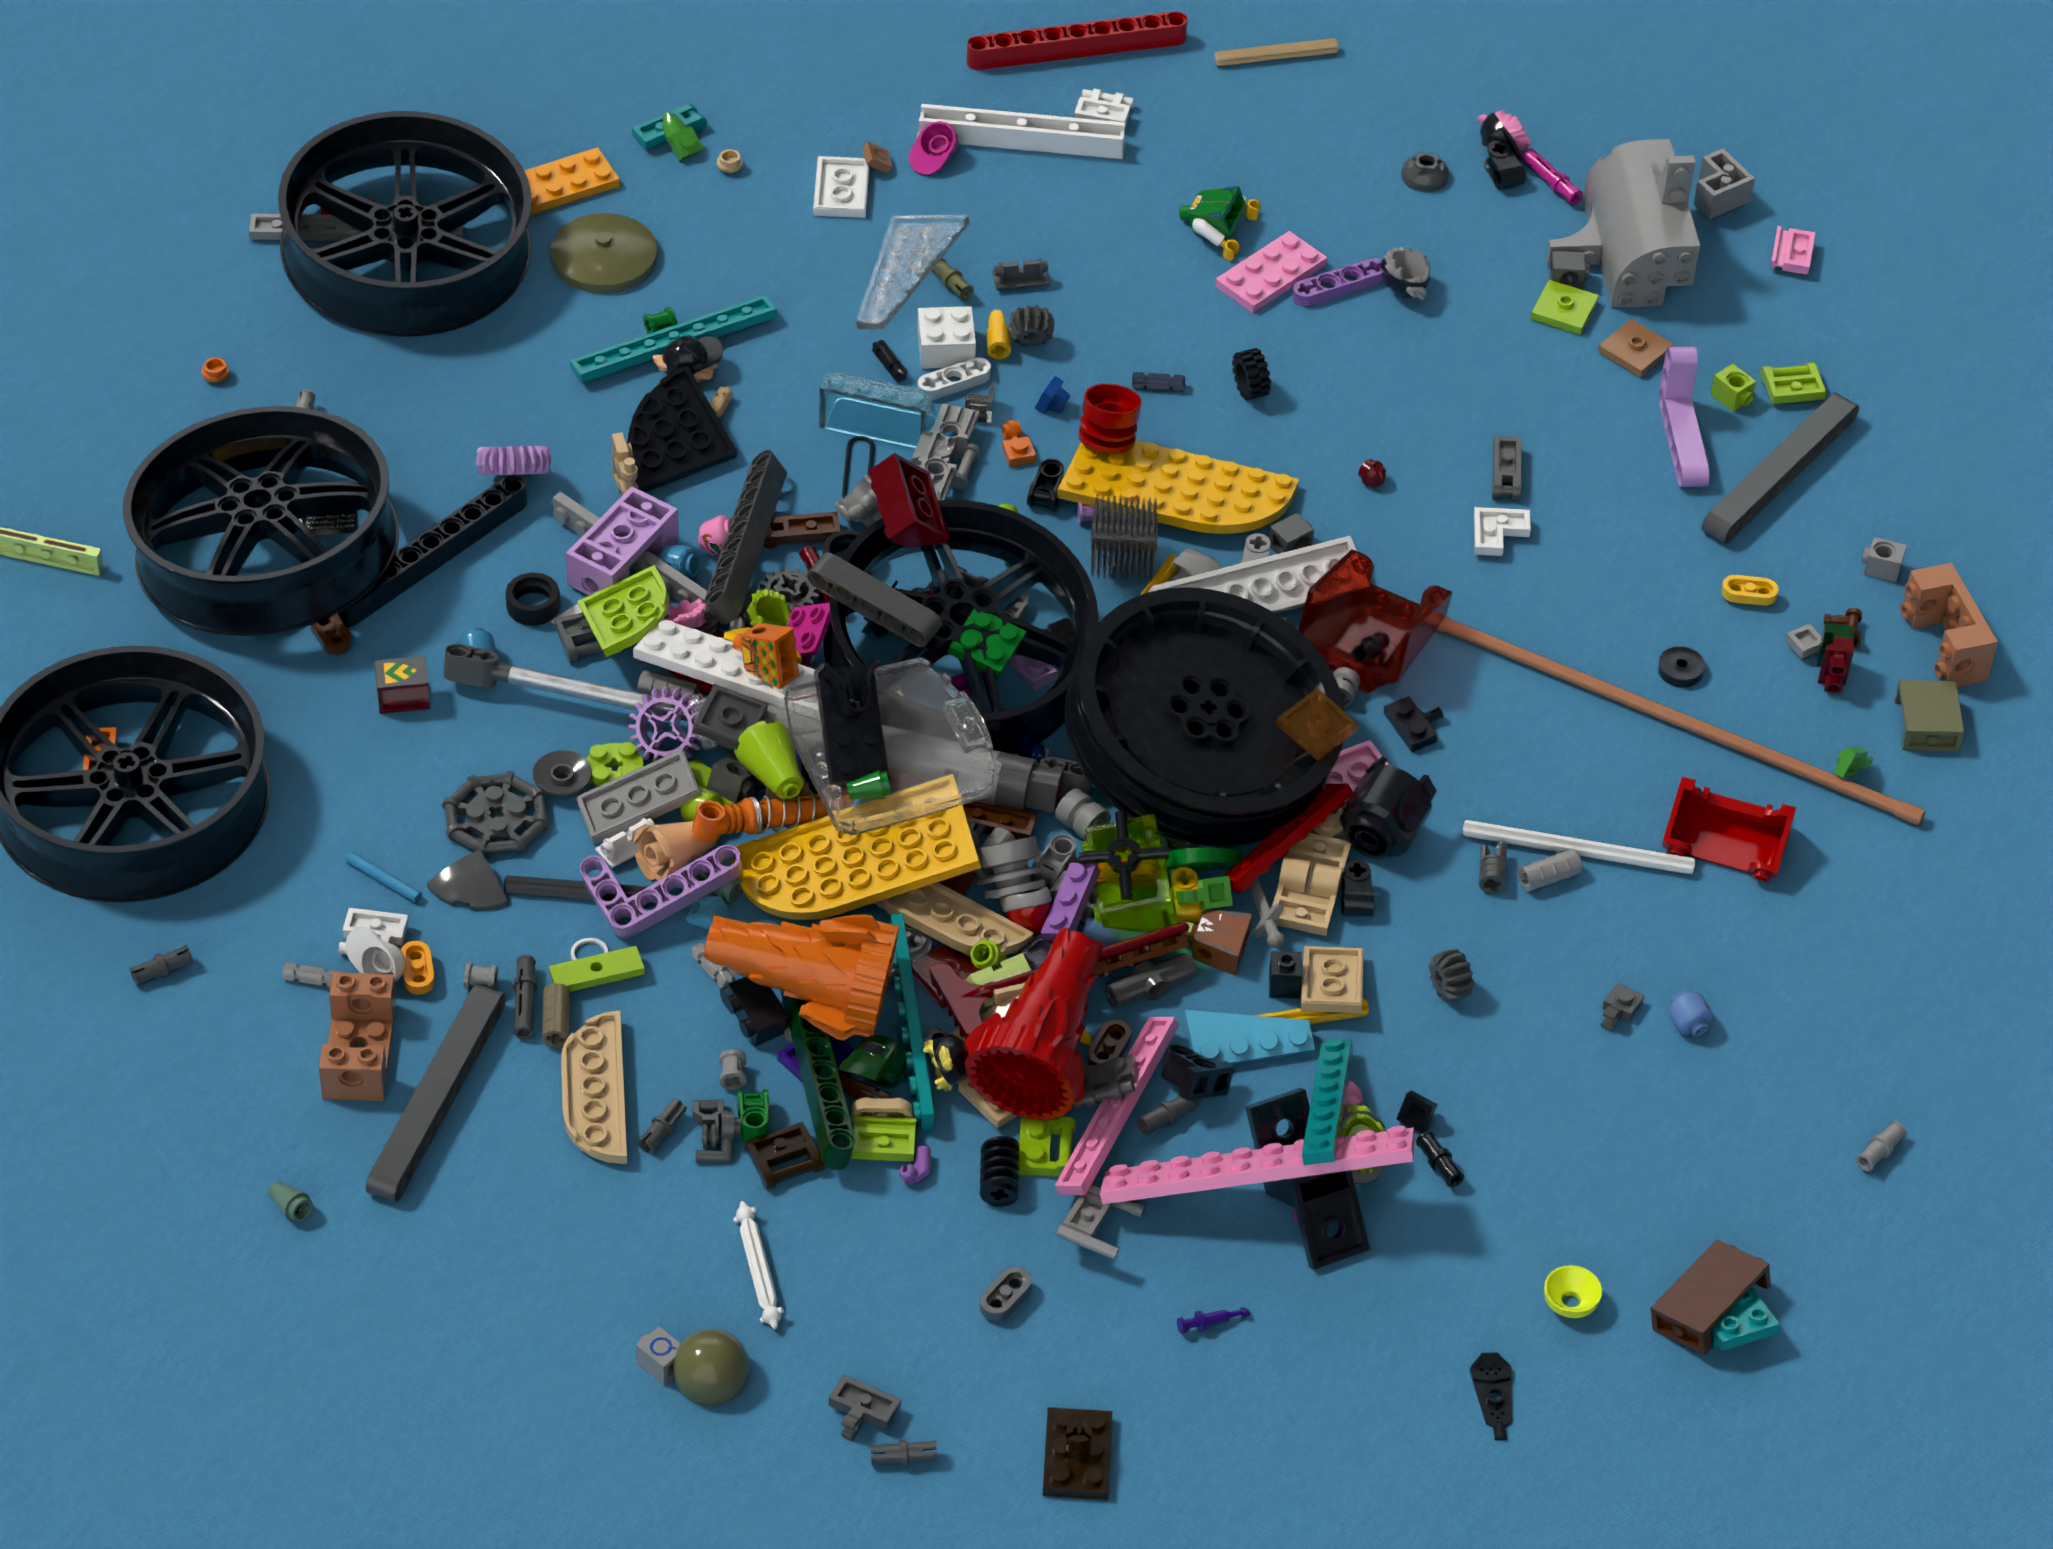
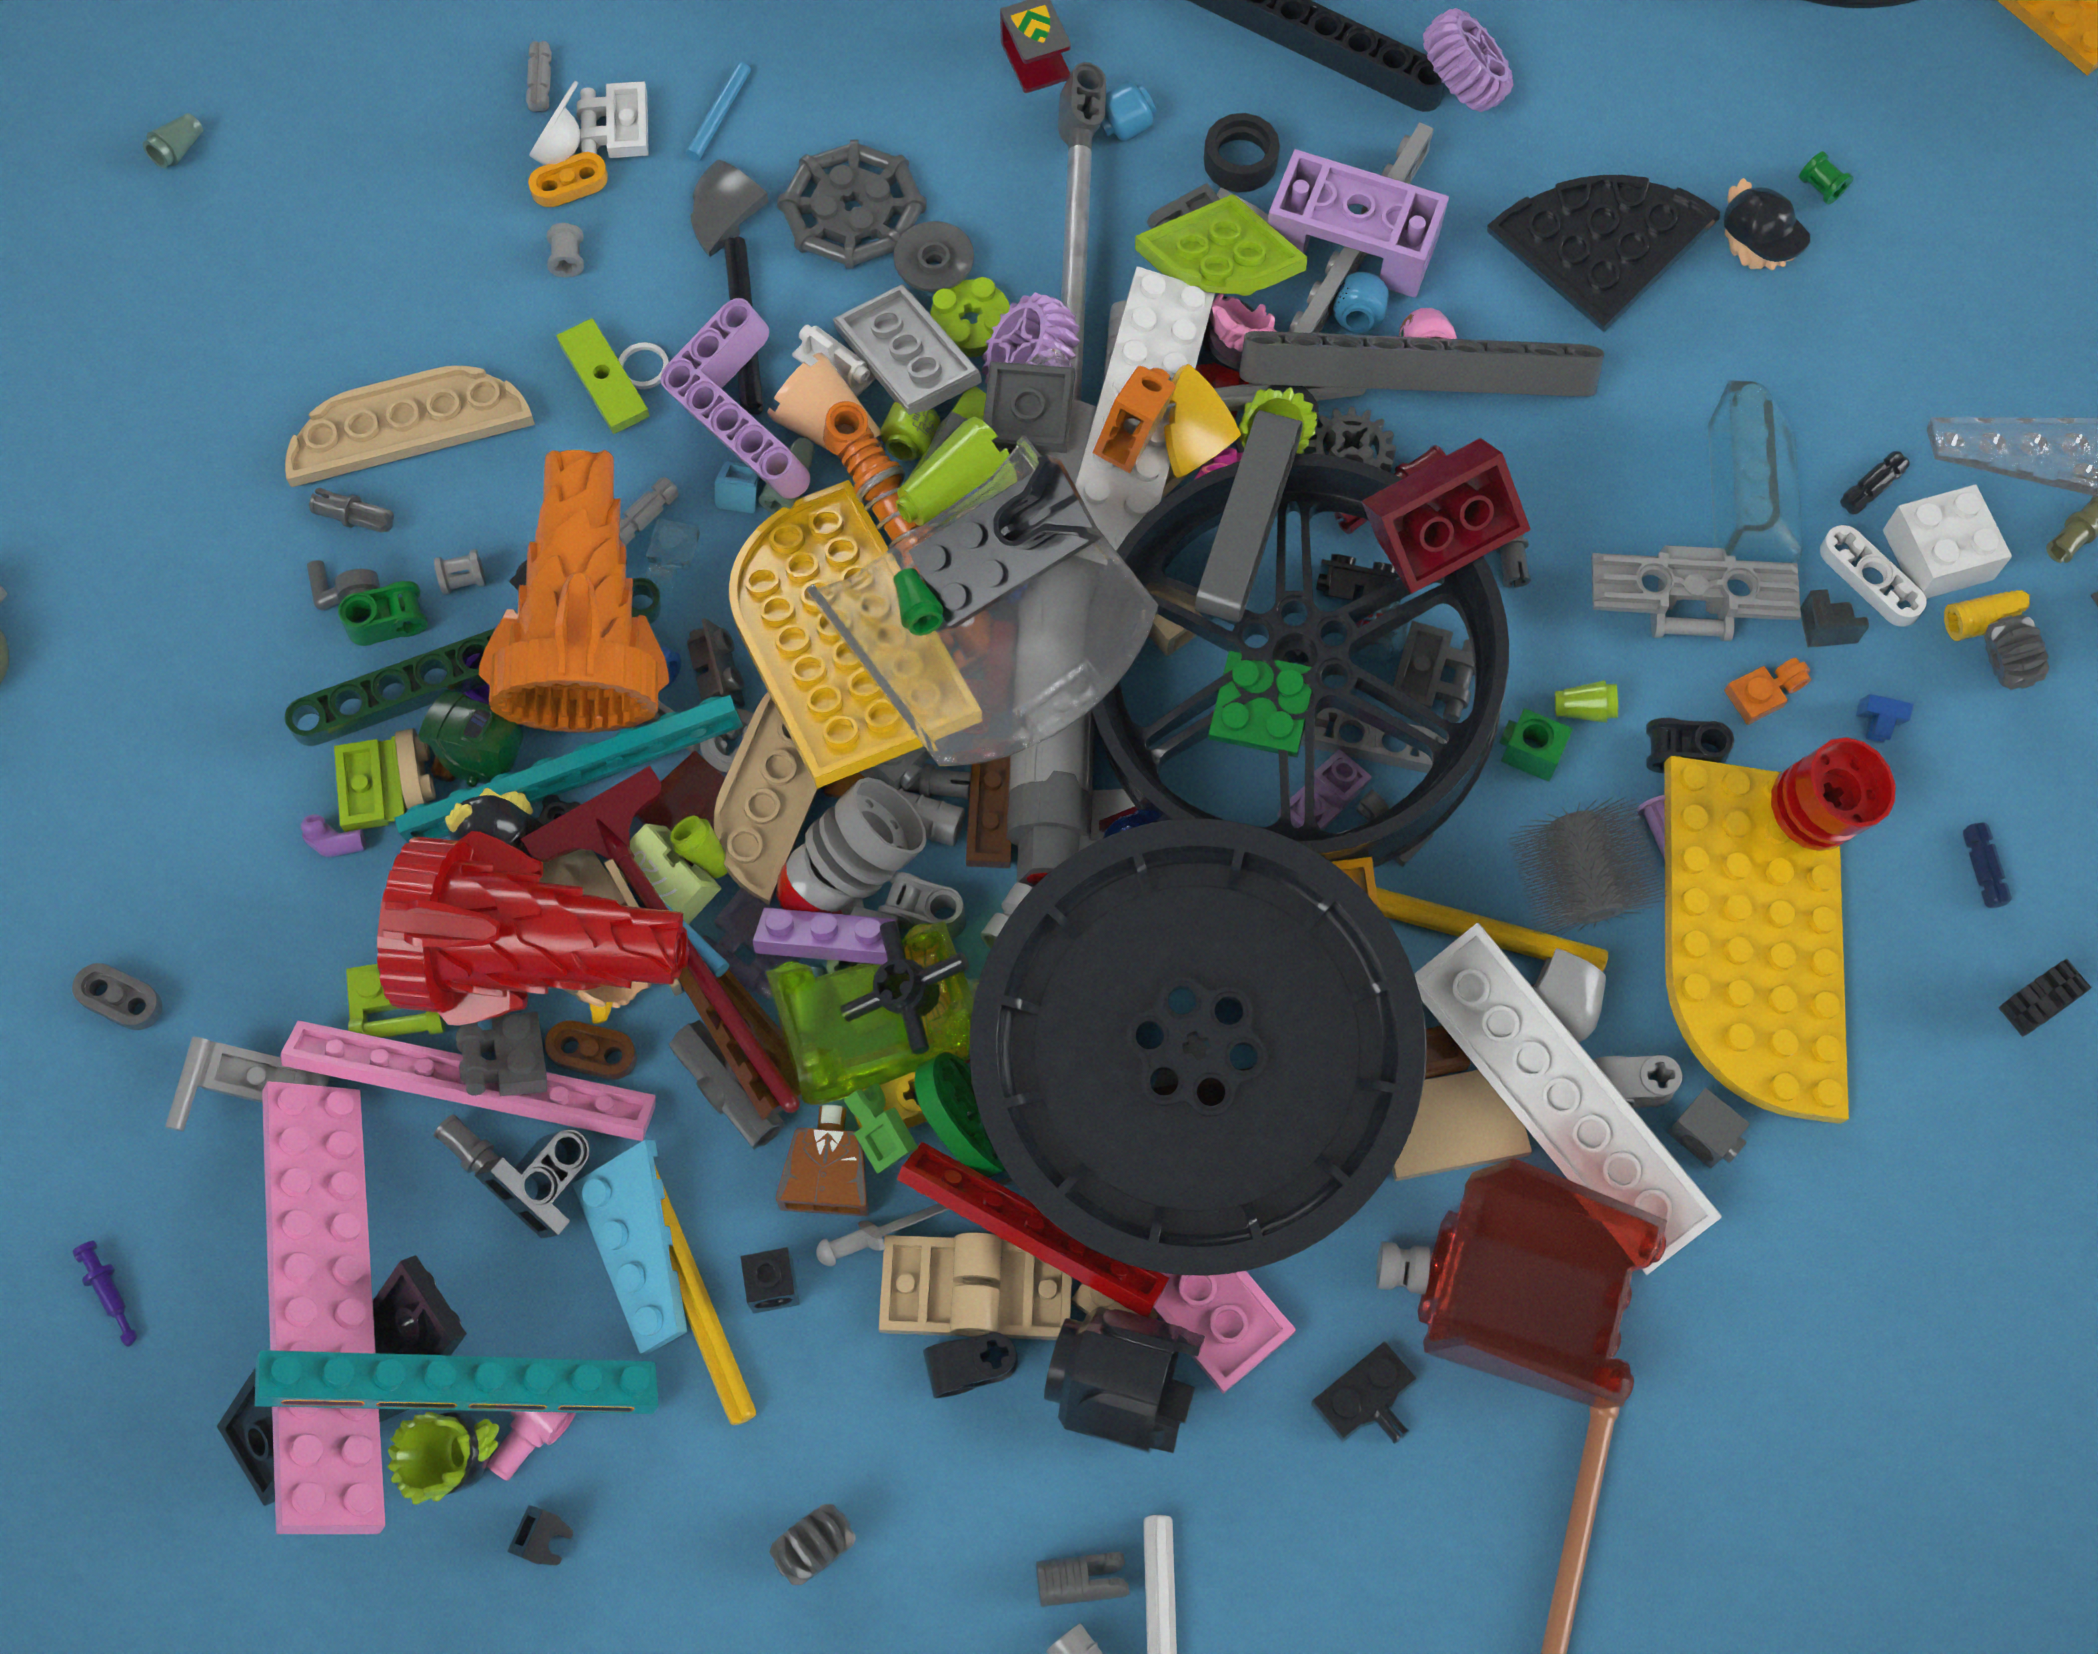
camera: 80 degrees right, 20 degrees up
(360, 1015) = (389, 157): nougat plate -> none
(435, 1093) = (367, 248): dark grey beam -> none
(525, 986) = (546, 306): dark grey pin -> none
(555, 1015) = (516, 347): dark tan axle -> none
(603, 253) = (1940, 85): olive dish -> none
(623, 464) = (1503, 189): tan plate -> none
(644, 347) = (1823, 219): teal plate -> none
(709, 1122) = (396, 546): dark grey piece -> none
(721, 400) = (1691, 286): tan axle -> none
(758, 1265) = (137, 677): white wheel -> none
(781, 1147) = (330, 650): dark brown plate -> none
(801, 528) = (1484, 425): reddish brown plate -> none
(848, 457) = (1612, 510): black piece -> none
(860, 504) = (1552, 503): light grey hair -> none
(999, 1171) = (326, 944): black piece -> none
(1317, 724) = (1208, 1223): clear orange plate -> none
(1332, 979) = (778, 1356): tan tile -> none
(1370, 646) = (1488, 1295): black pin -> none
(1372, 473) = (1905, 1235): dark red plate -> none
(1440, 1159) = (450, 1588): black pin -> none
(1493, 524) = (1862, 1457): white plate -> none
(1507, 467) = (2009, 1461): dark grey plate -> none

